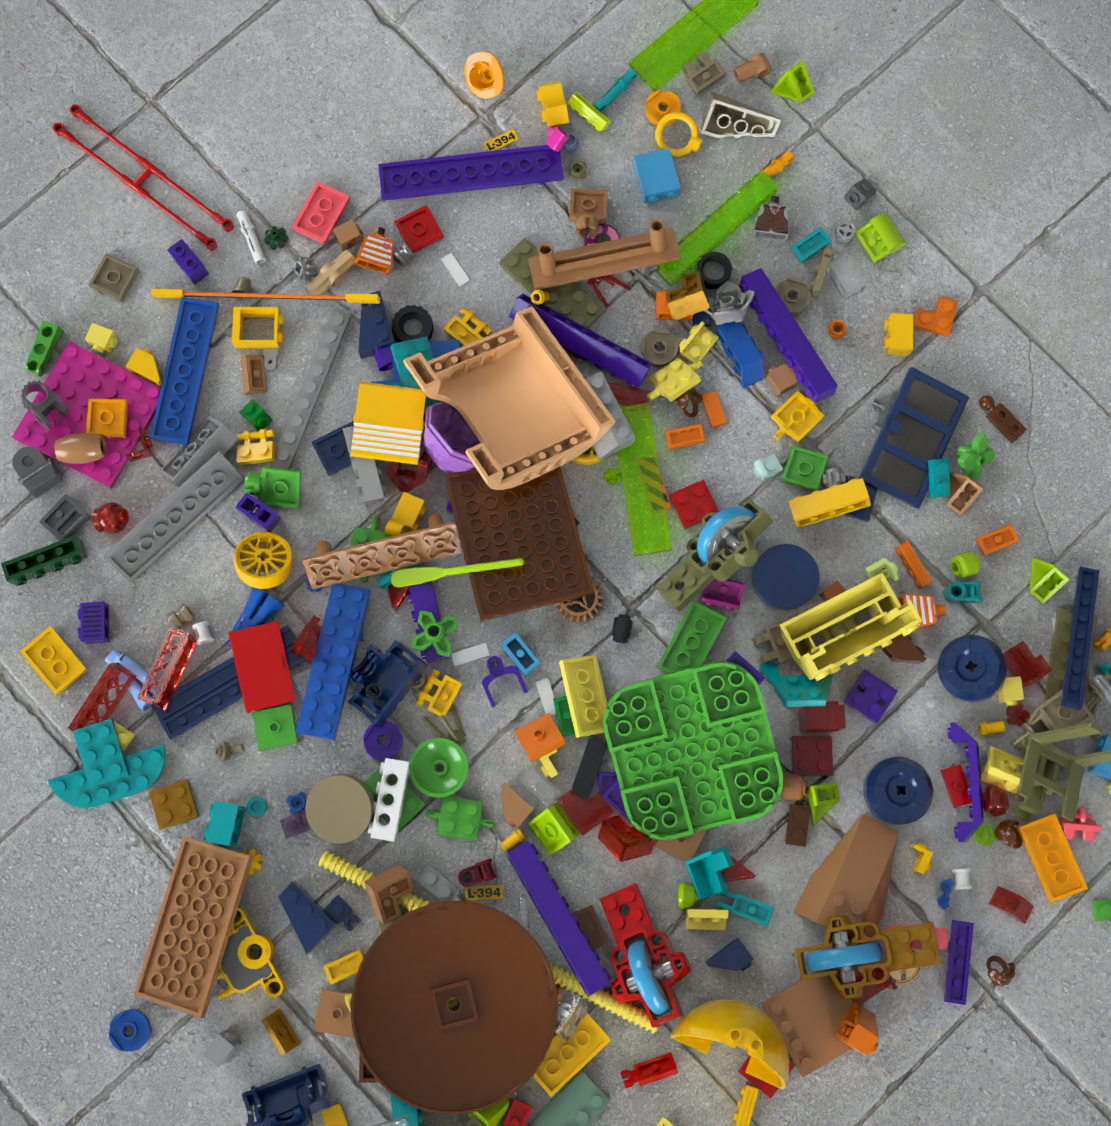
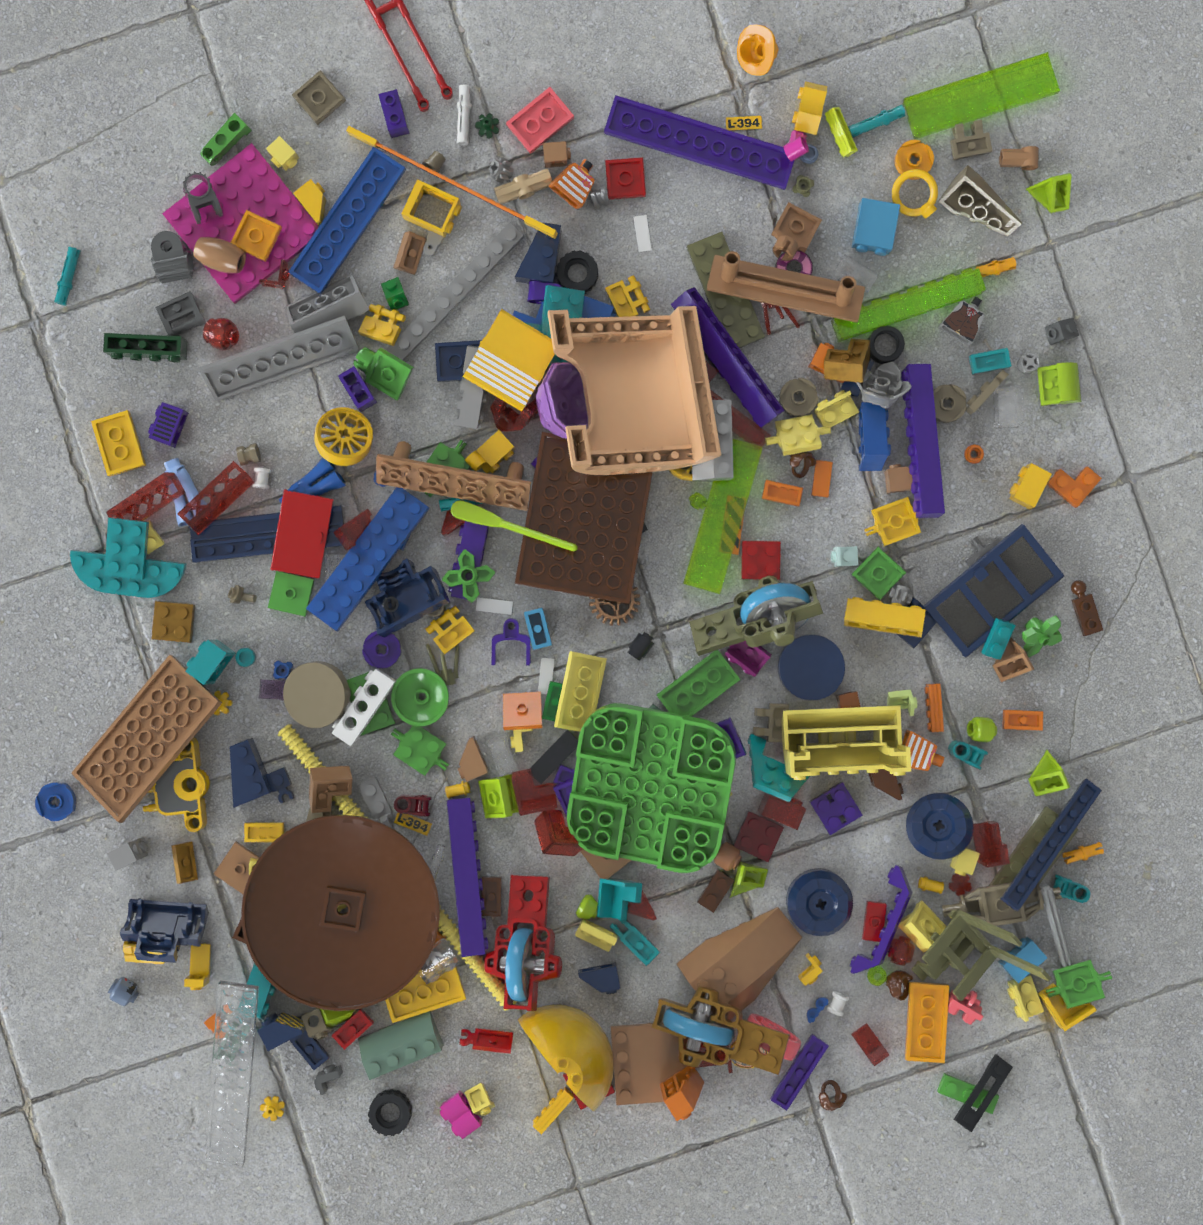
camera: 25 degrees right, 10 degrees up
(539, 297) = (707, 299): yellow pin -> none

